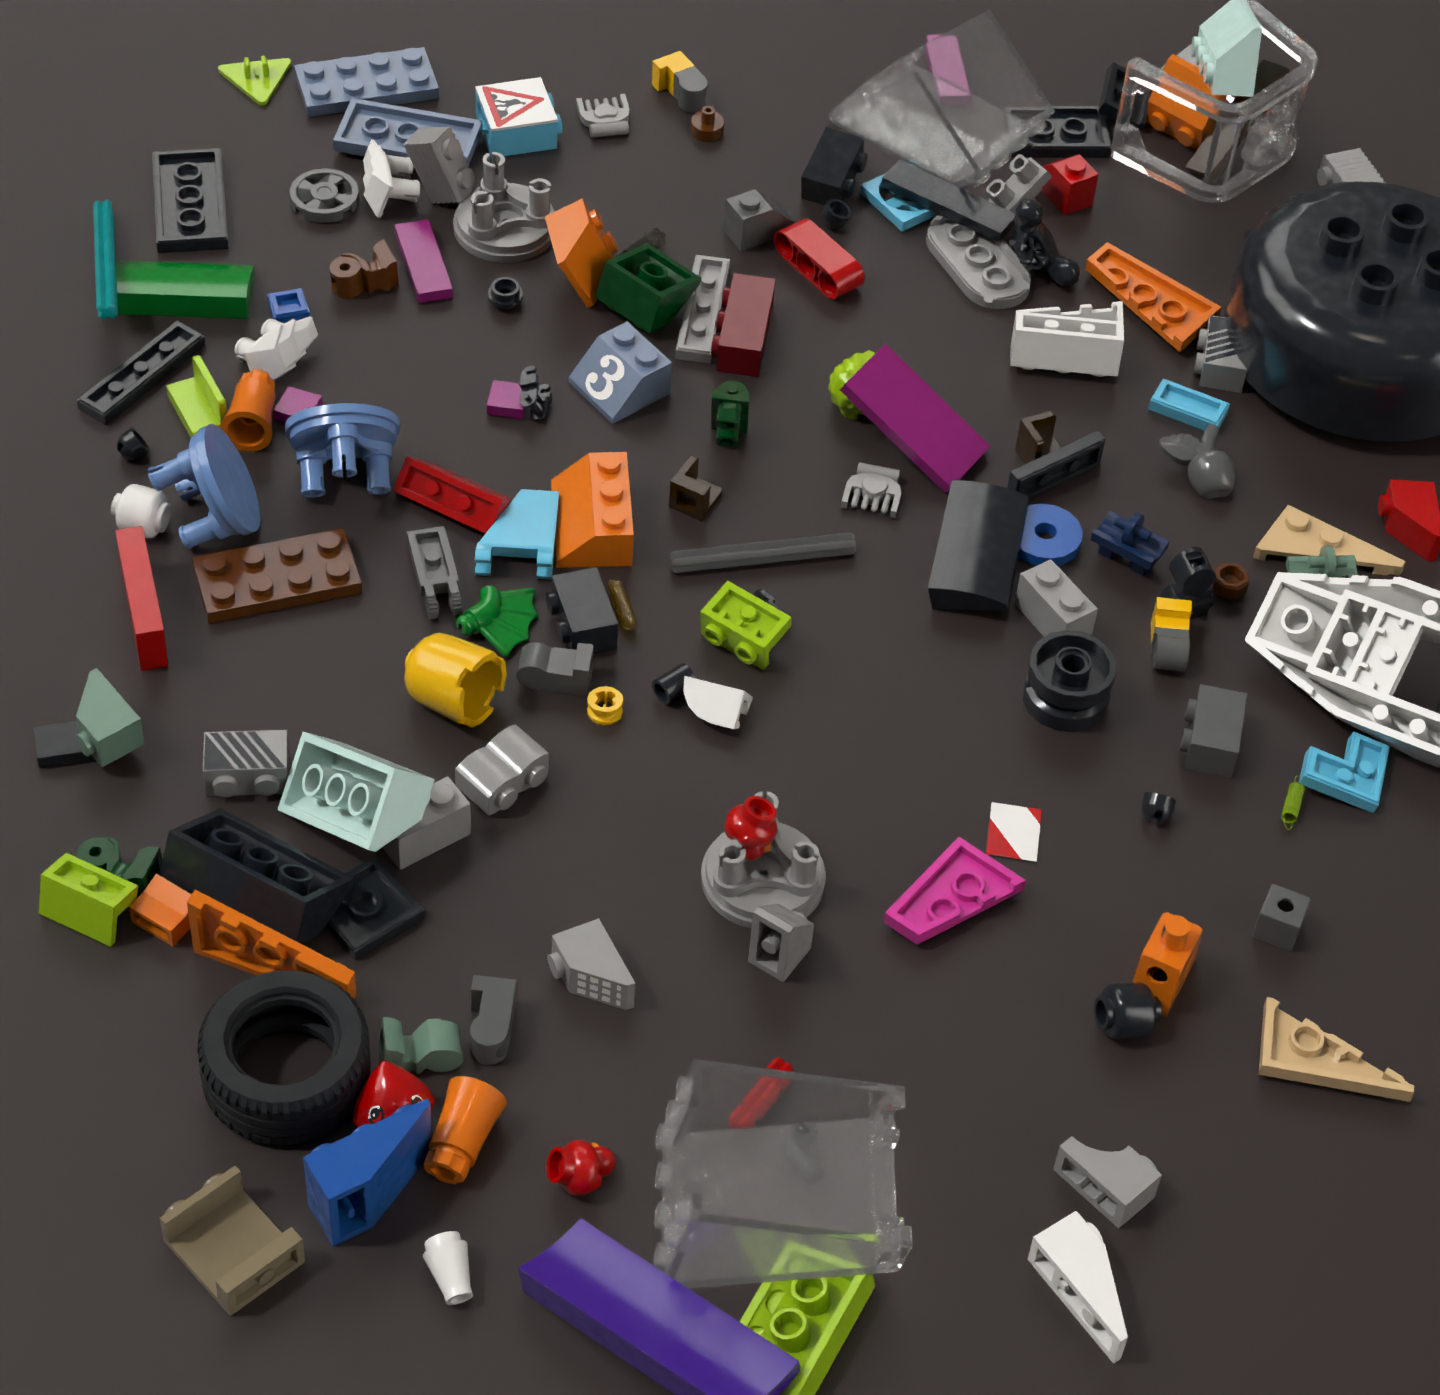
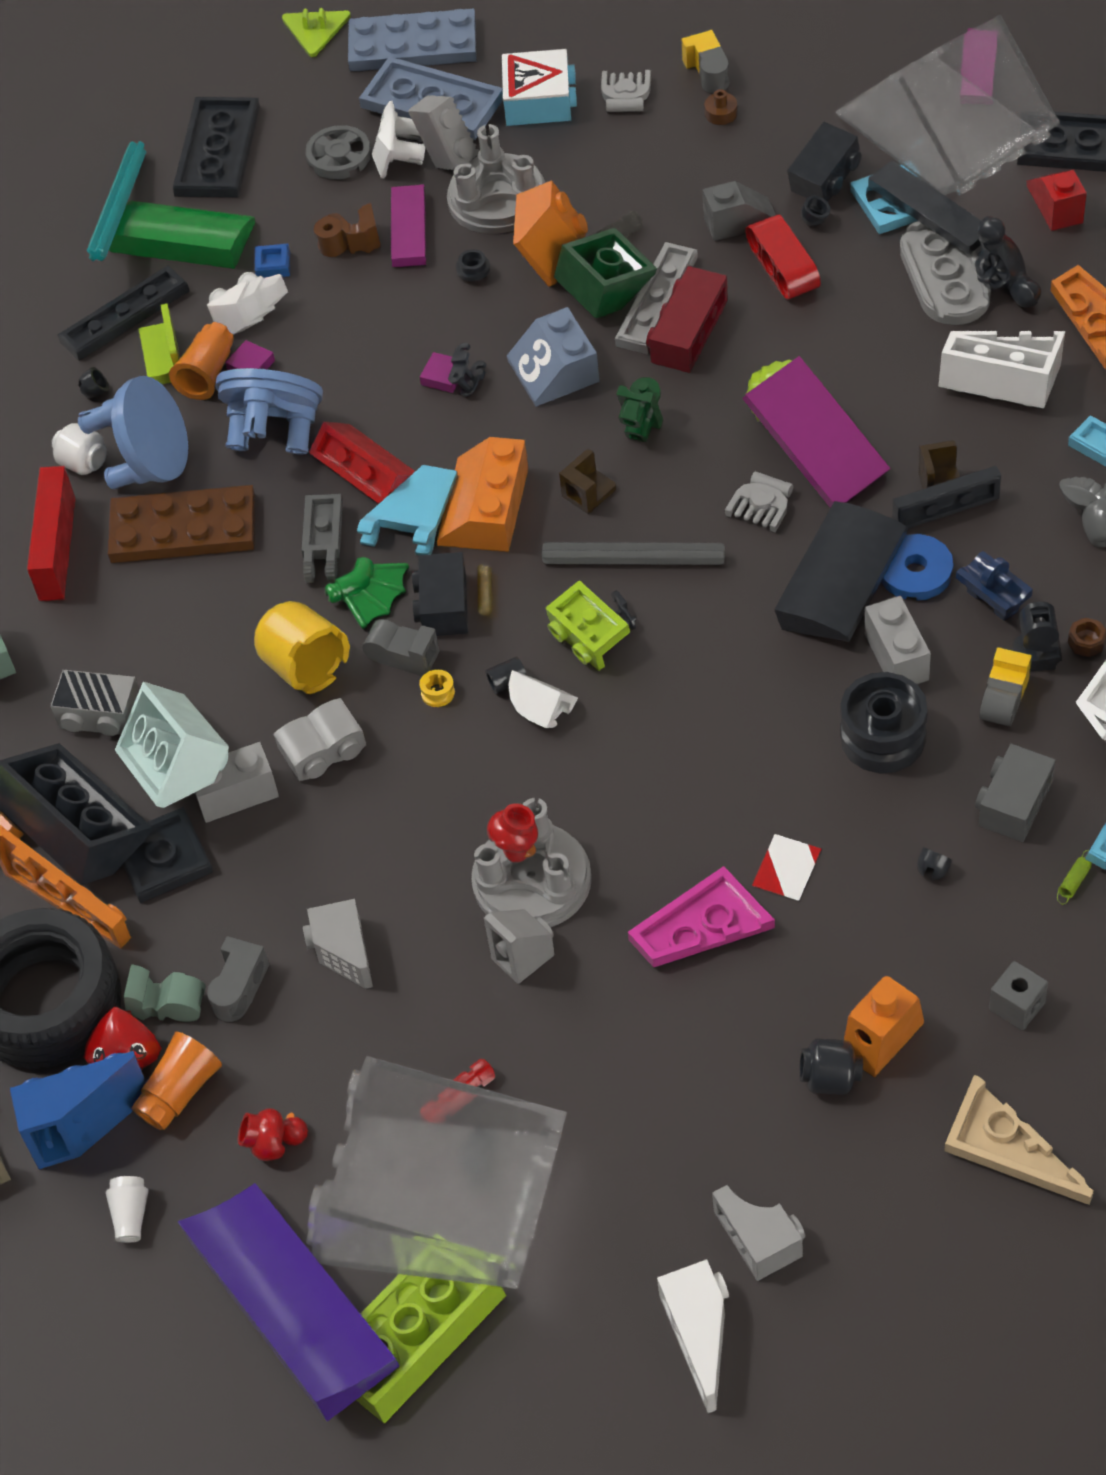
camera: 25 degrees right, 5 degrees up
(1024, 183) = (1007, 200): light grey hips -> none

